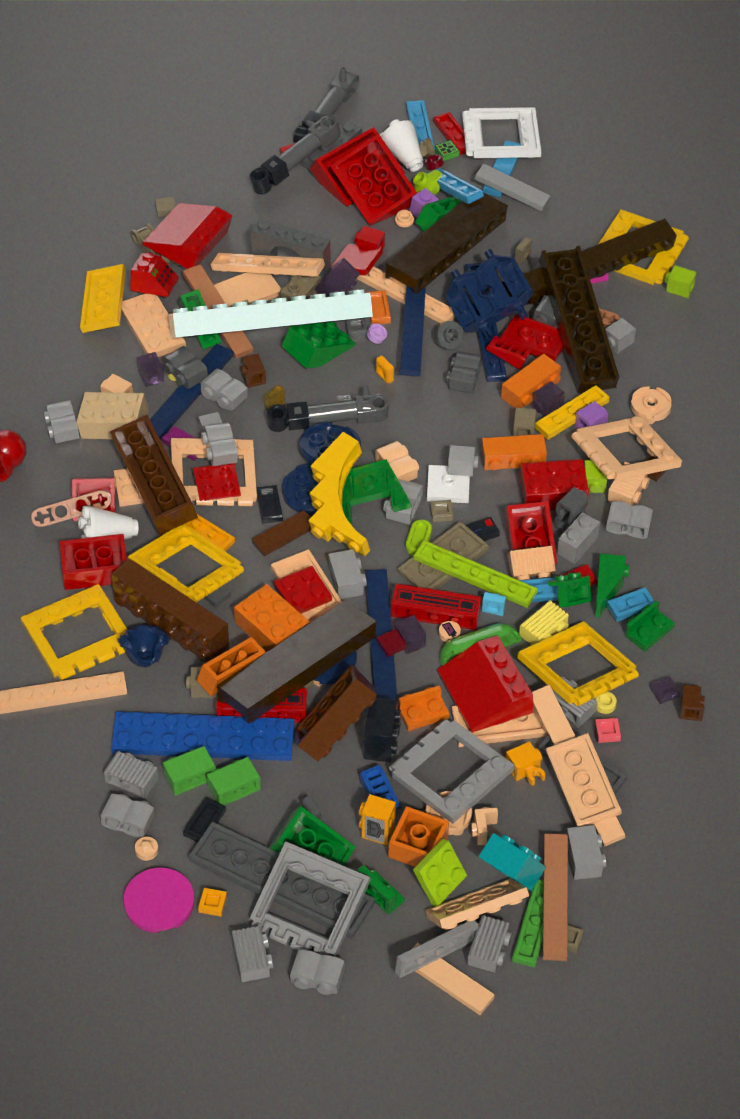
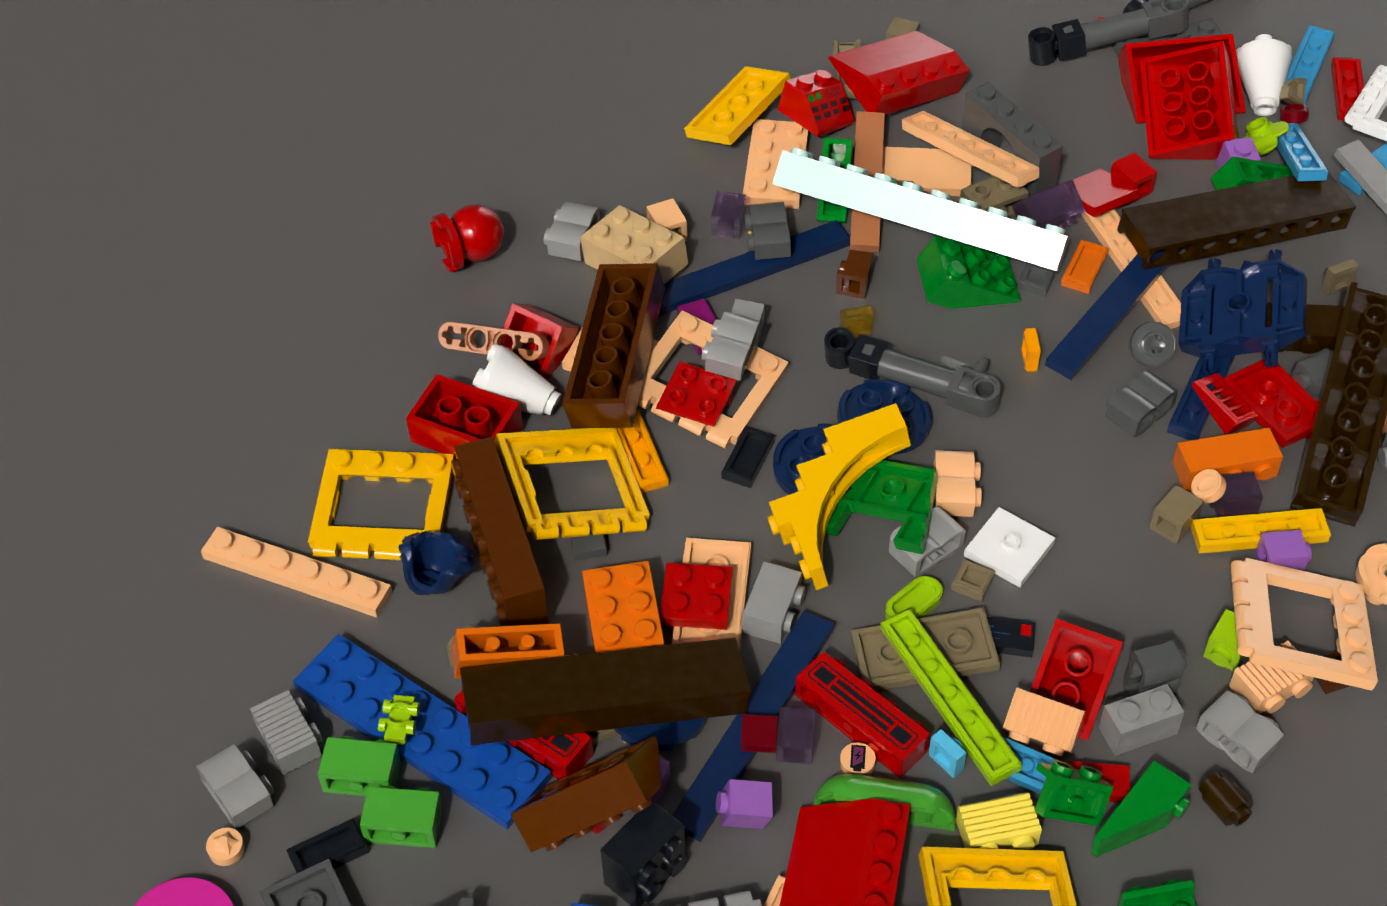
camera: 35 degrees right, 0 degrees up
(194, 734) = (399, 721): none -> lime piece
(223, 389) = (799, 281): light grey brick -> none
(282, 533) = (732, 504): reddish brown tile -> none
(376, 333) = (1056, 298): lavender tile -> none
(404, 218) = (1201, 168): light nougat plate -> none
(412, 679) = (745, 804): none -> medium lavender brick
(423, 708) = (735, 855): orange bracket -> none
(447, 150) = (1323, 106): bright green tile -> none
(462, 460) = (1044, 522): light grey brick -> none
(512, 451) = (1133, 546): orange brick -> none
(533, 399) = (1208, 485): none -> light nougat tile
(552, 480) = (1153, 612): red brick -> none
(629, 604) = (1153, 862): dark azure plate -> none
(644, 556) = (1226, 799): none -> dark brown brick

